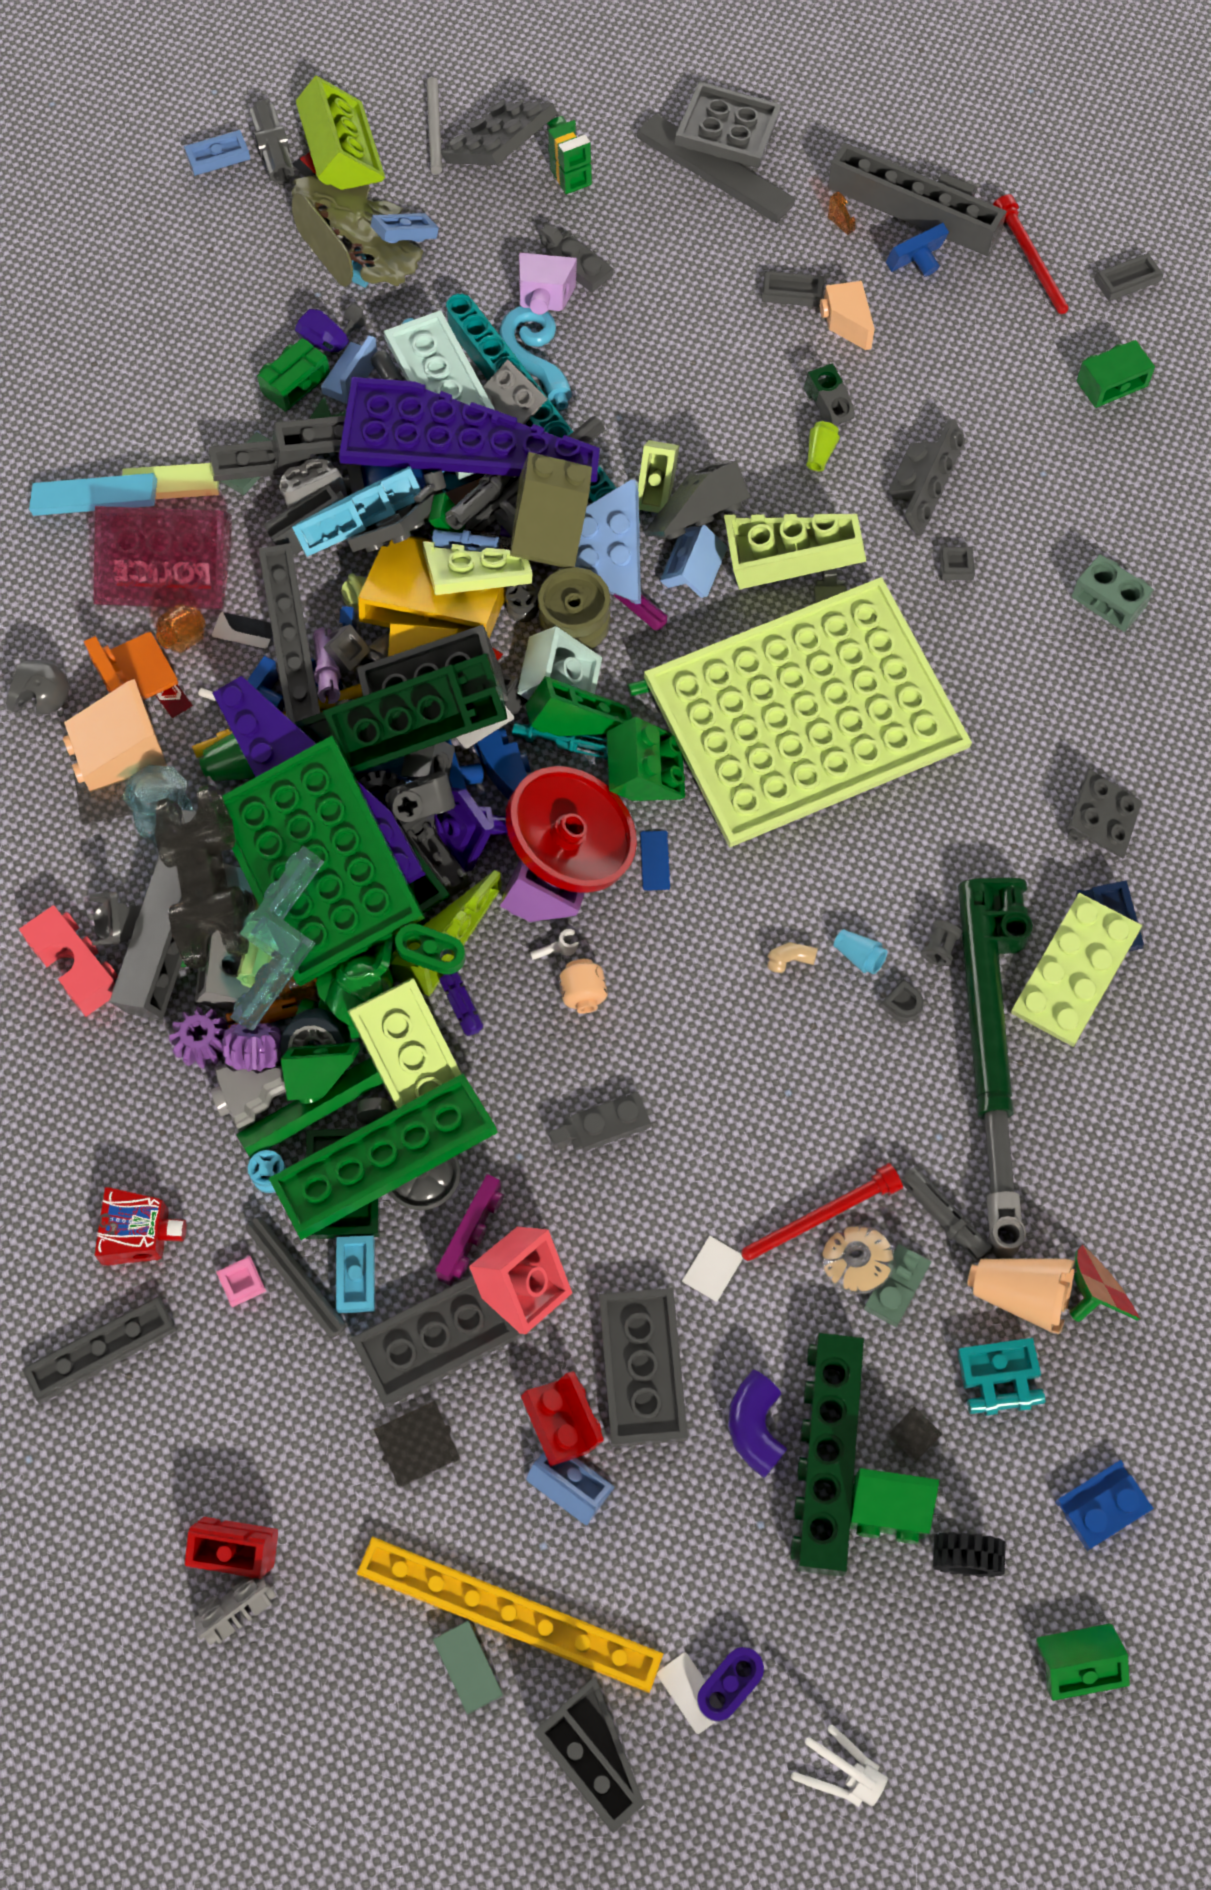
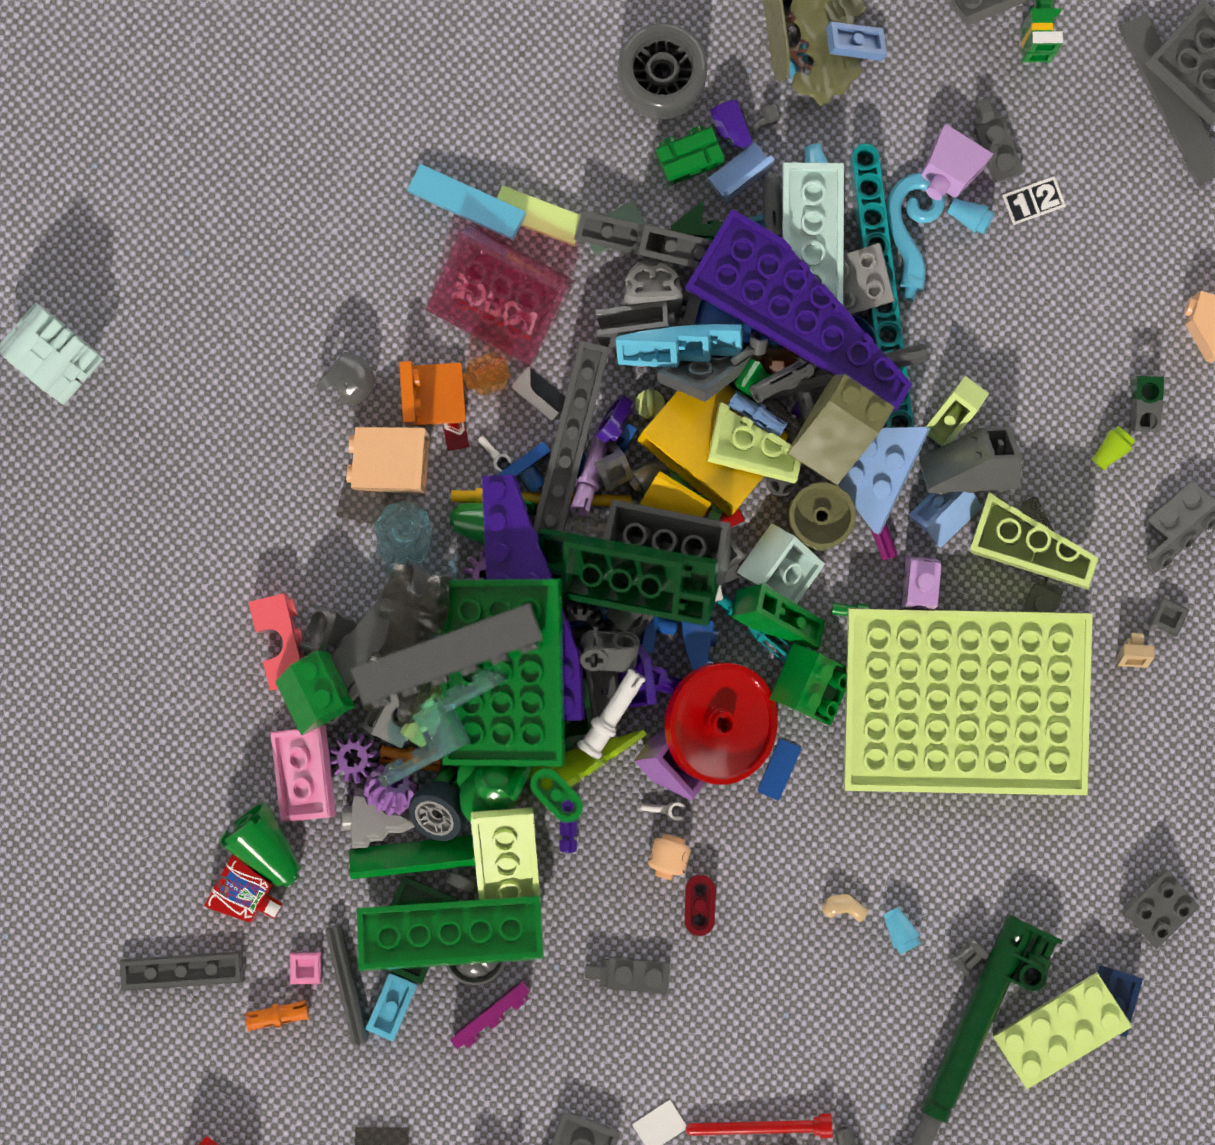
camera: 25 degrees right, 20 degrees up
(123, 974) = (314, 691): none -> green slope
(136, 1165) = (262, 846): none -> green cone
(151, 1076) = (303, 774): none -> bright pink tile
(229, 1344) = (276, 1015): none -> orange pin
(233, 314) = (668, 49): none -> dark grey wheel
(248, 851) = (446, 655): none -> dark grey brick
(262, 1165) = (355, 895): medium azure wheel -> none
(314, 1069) = (431, 838): green slope -> none
(328, 610) = (617, 414): none -> dark purple plate
(431, 1341) = (429, 1084): dark grey plate -> none
(449, 871) = (604, 726): none -> white pin
(522, 1277) = (511, 1074): coral slope -> none
(584, 318) = (972, 215): none -> medium azure cone
(636, 290) = (1034, 200): none -> sticker
(640, 1021) = (700, 904): none -> dark red plate
(701, 618) = (920, 583): none -> lavender torso
(792, 288) = (1174, 267): dark grey tile -> none
(903, 1002) = (913, 987): dark grey tile -> none
(944, 602) = (1135, 653): none -> tan tile

